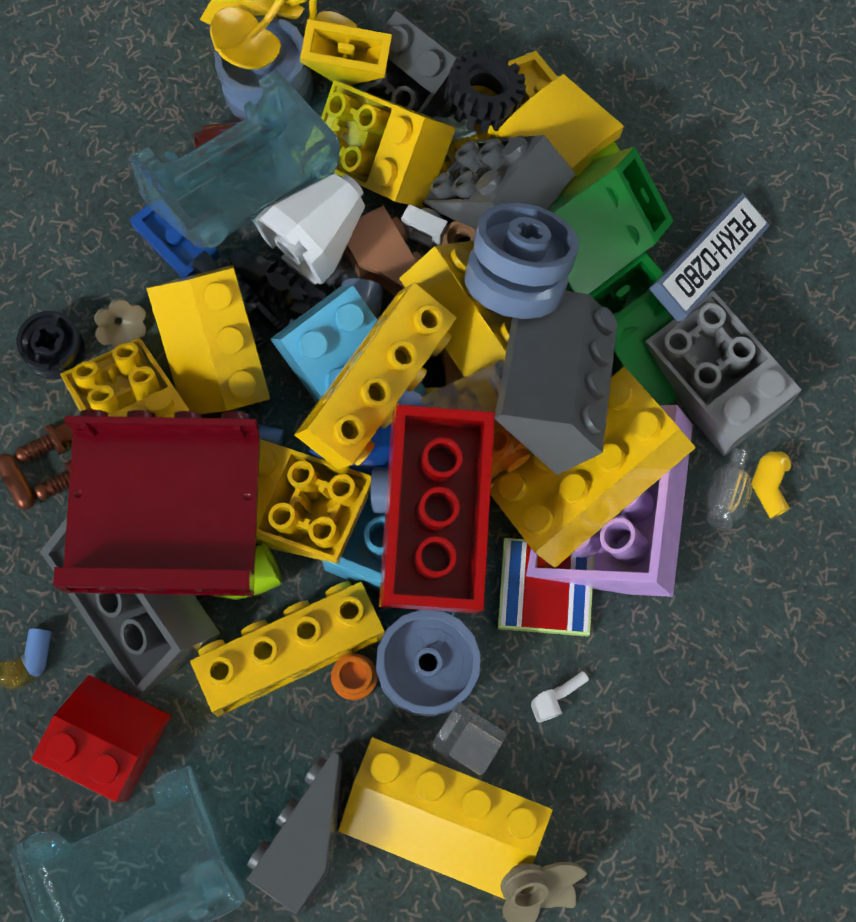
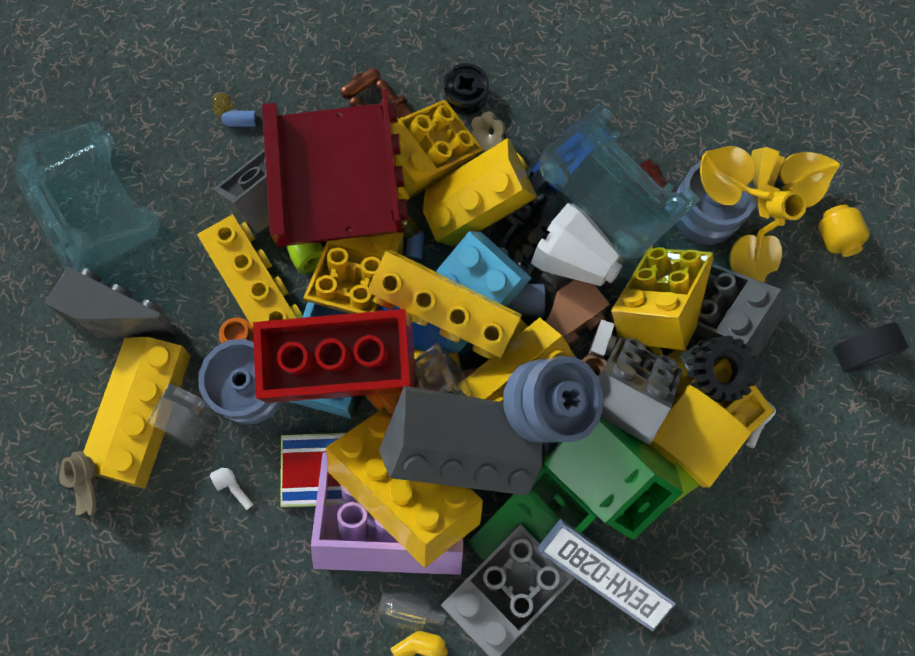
camera: 80 degrees right, 0 degrees up
(102, 739) = (177, 168): red slope -> none
(345, 52) = (735, 253): yellow slope -> none

